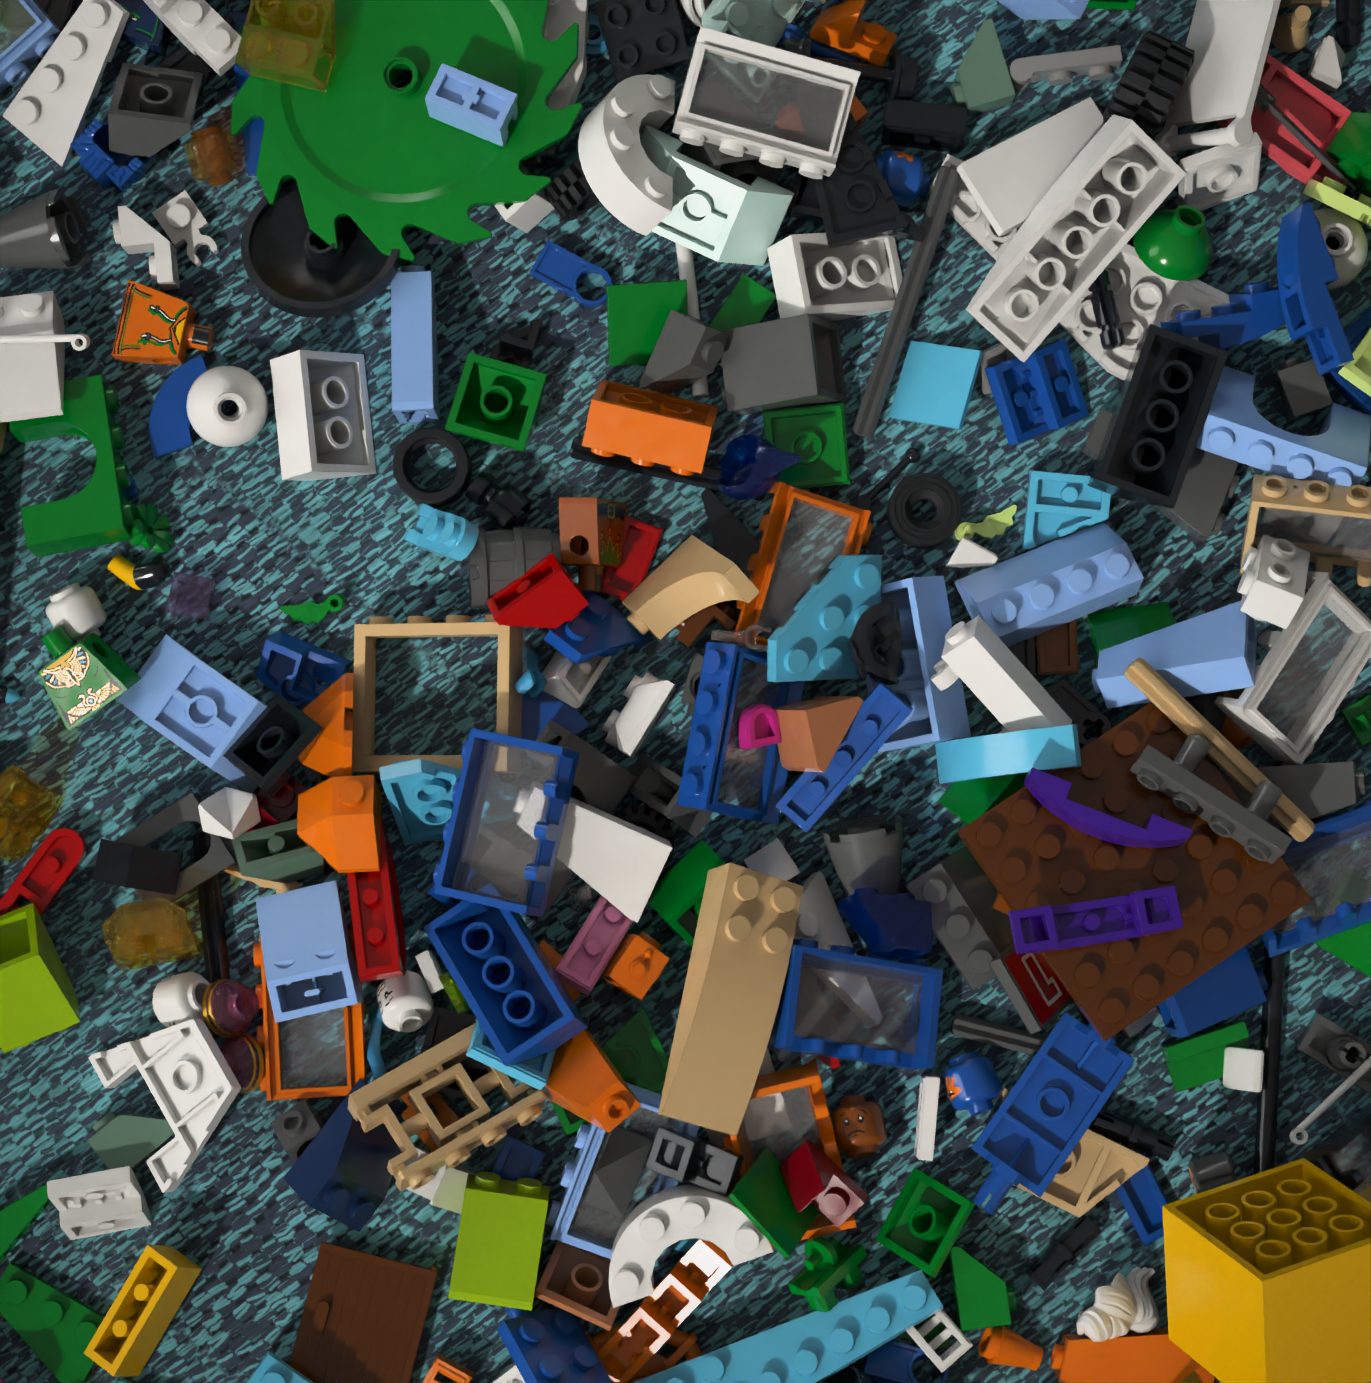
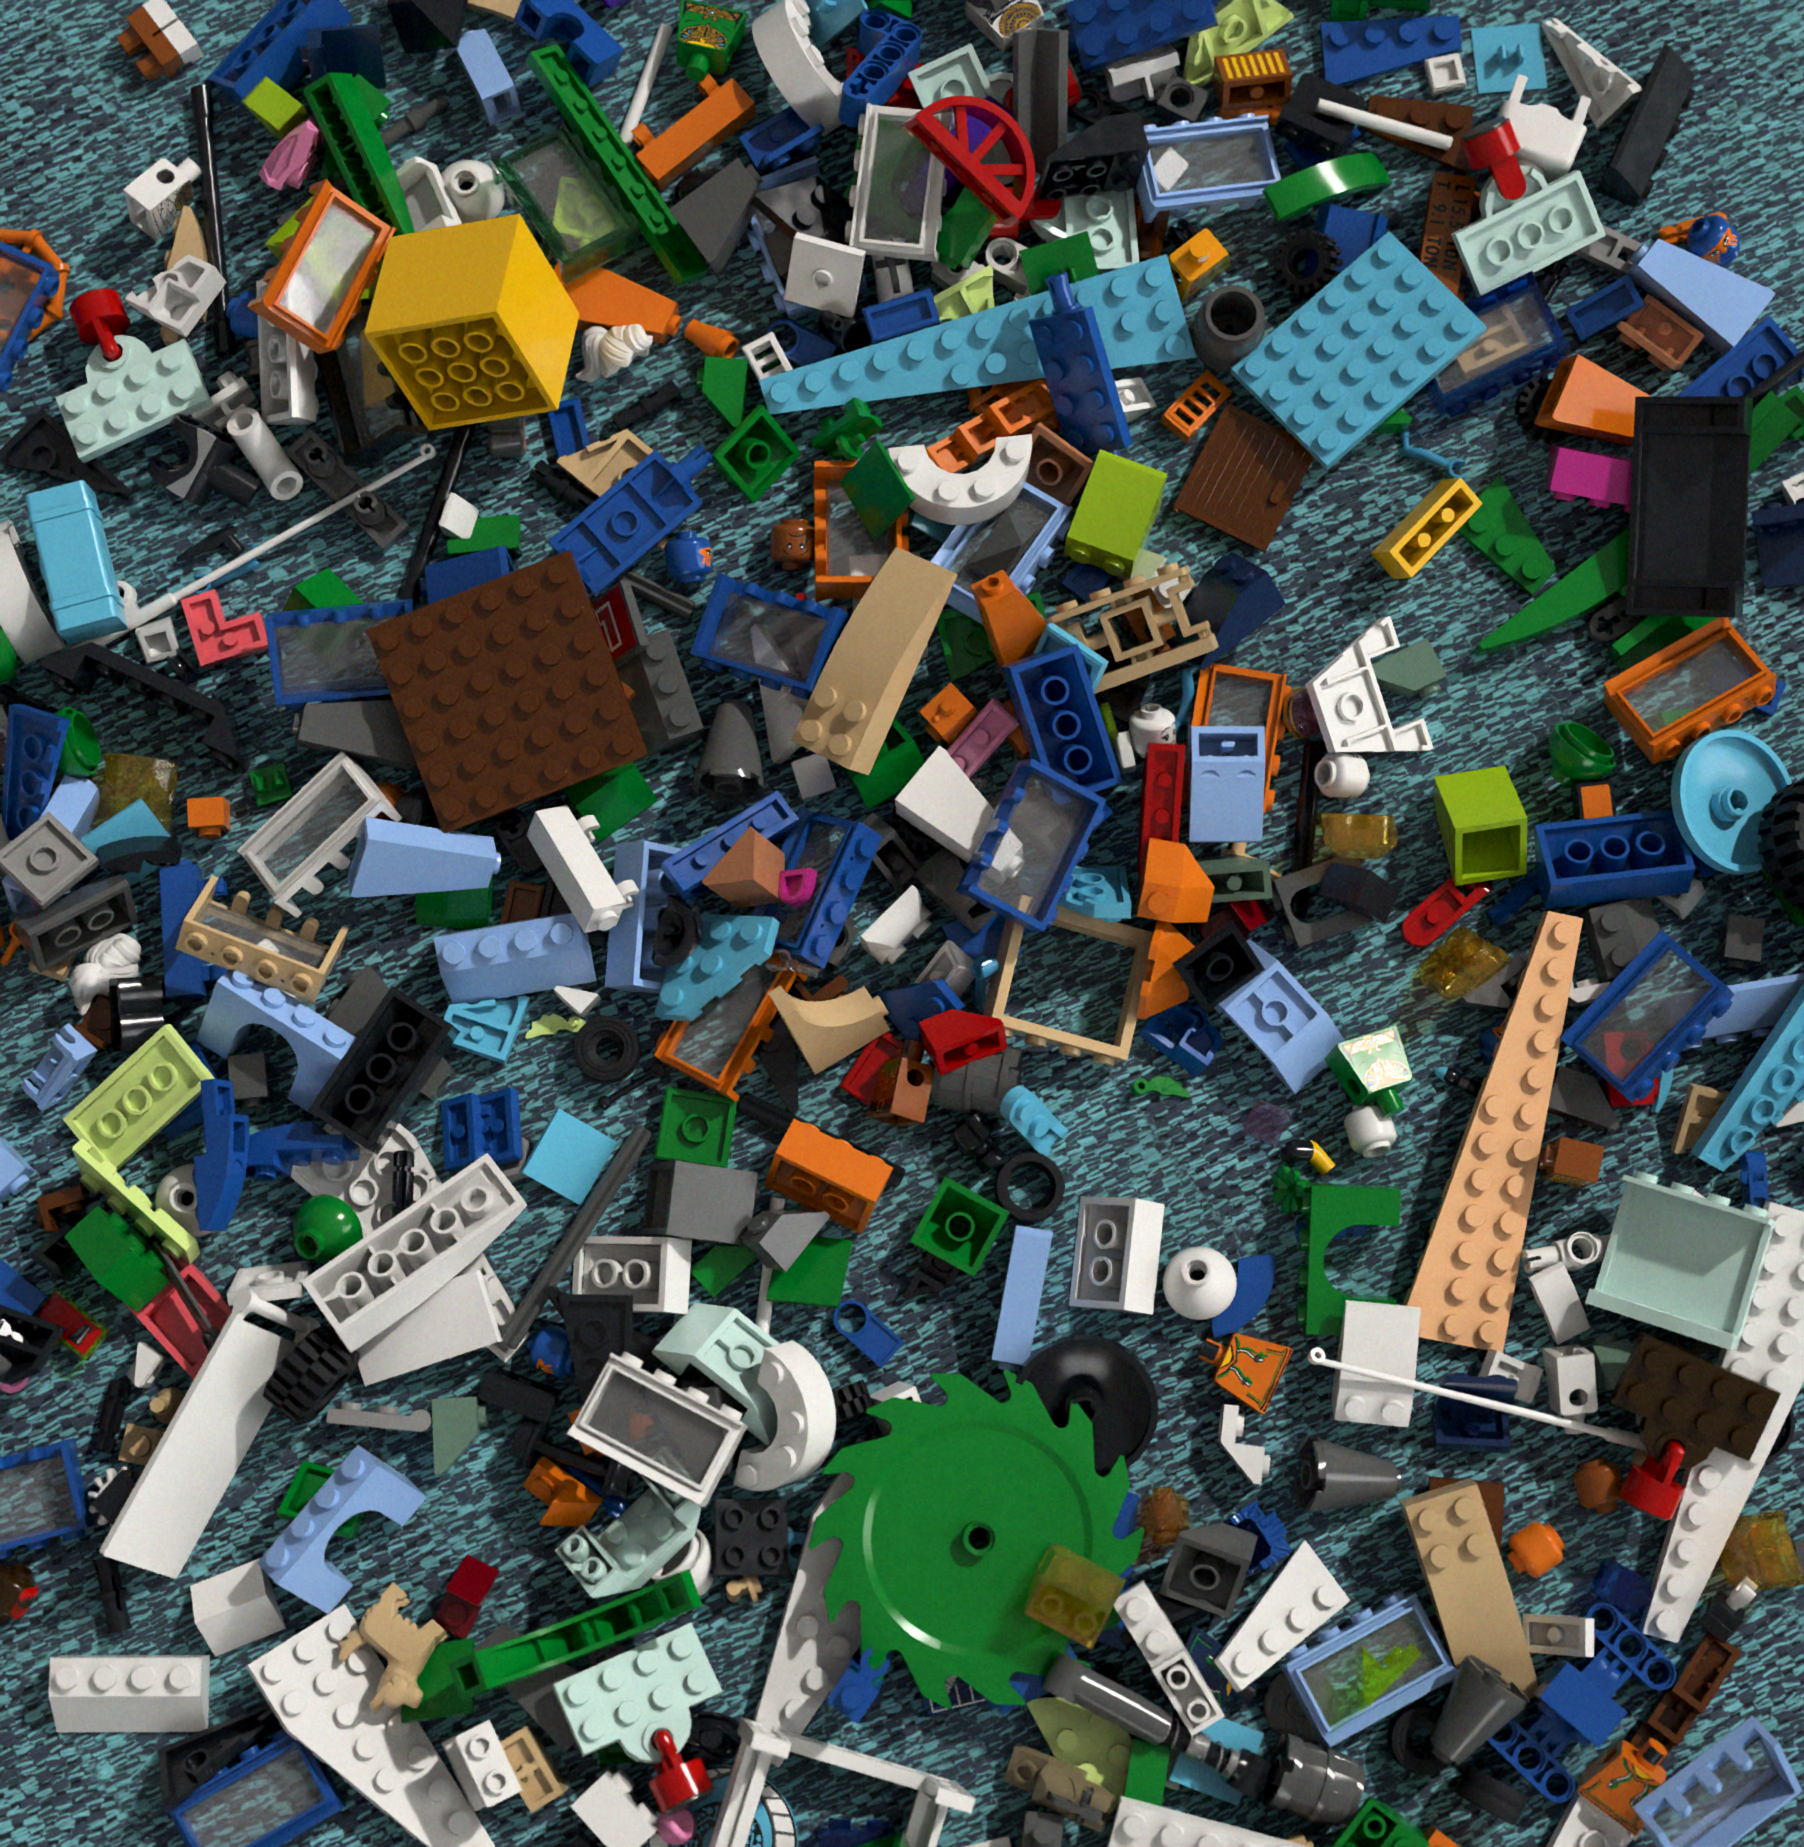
camera: 170 degrees left, 5 degrees down
(99, 1202) = (1446, 623): white slope -> none
(183, 224) = (1205, 1462): white plate -> none
(229, 813) = (1269, 919): white slope -> none
(229, 1007) = (1303, 760): clear pink piece -> none
(298, 1128) = (1263, 644): dark grey brick -> none
(471, 104) = (920, 1490): light blue hinge -> none
(695, 1161) = (935, 540): black slope -> none
(752, 467) = (748, 1114): clear blue piece -> none
(819, 1181) = (836, 500): dark red slope -> none
(890, 924) = (725, 694): clear blue slope -> none
(926, 1117) = (733, 538): white tile -> none
(1008, 753) = (588, 813): medium azure slope -> none
(1053, 793) = (557, 761): dark purple slope -> none
(1095, 921) = (552, 647): dark purple slope -> none
(1195, 796) = (443, 734): dark grey plate -> none
(1221, 750) = (409, 773): tan axle -> none
(1273, 581) = (323, 905): white brick -> none

